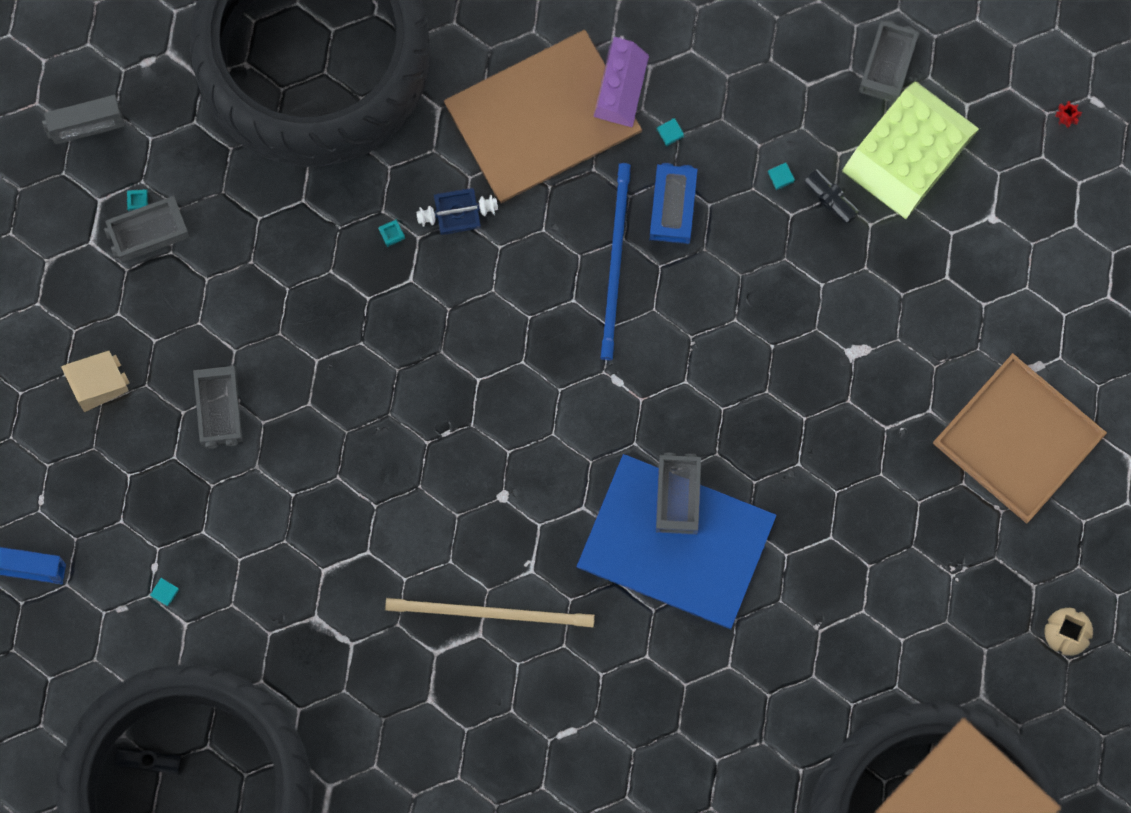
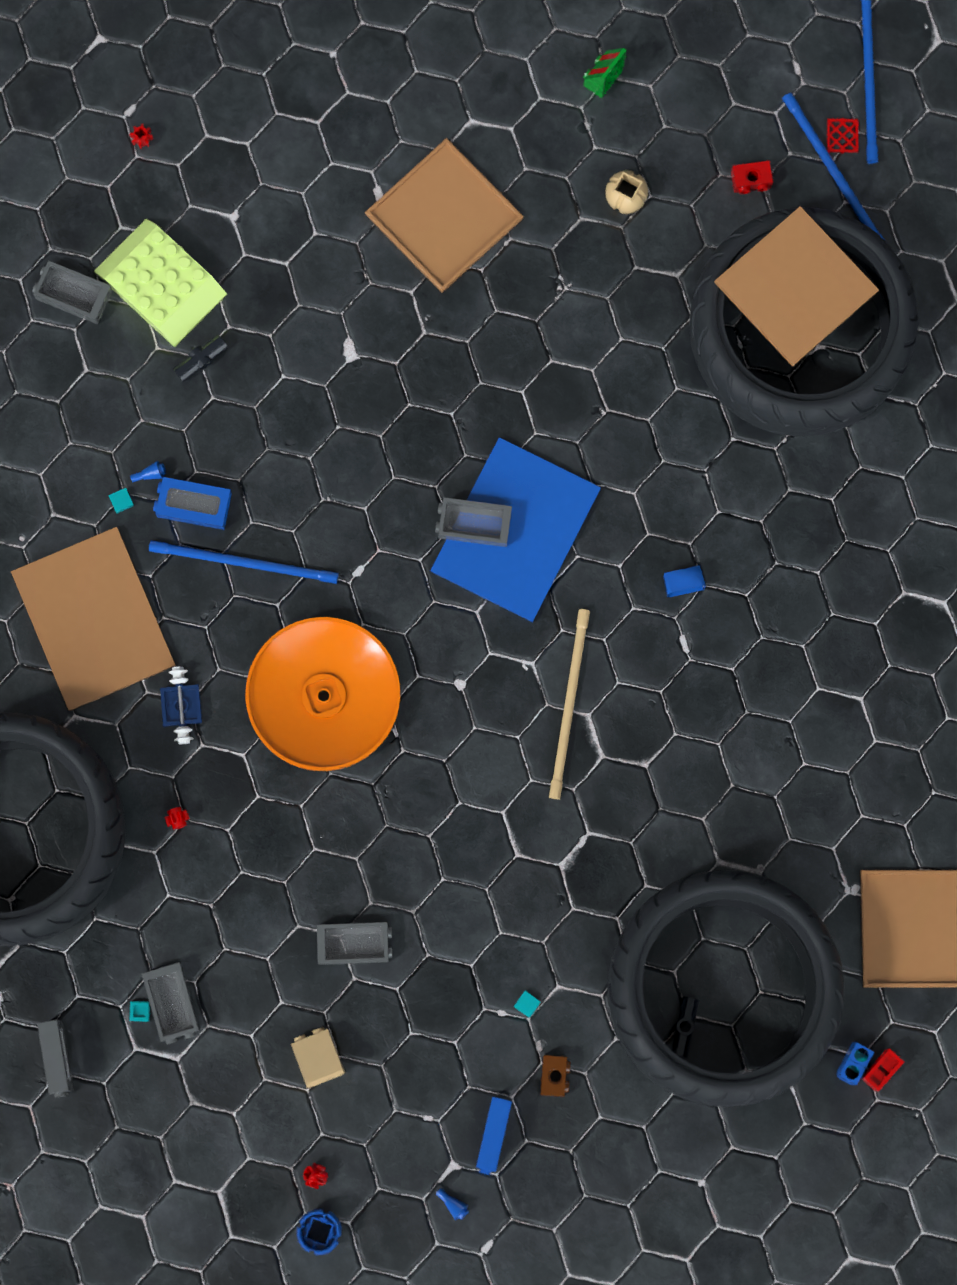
camera: 85 degrees left, 5 degrees up
(78, 619) = (550, 1064): none -> reddish brown brick
(338, 217) = (176, 818): none -> red gear
(391, 233) = (195, 769): teal tile -> none
(470, 315) = (317, 658): none -> orange dish
(621, 82) = (69, 541): medium lavender slope -> none
(634, 725) = (683, 581): none -> blue piece
(704, 162) = (154, 471): none -> blue cone
(781, 176) = (174, 402): teal tile -> none
(1105, 757) = (760, 170): none -> red brick

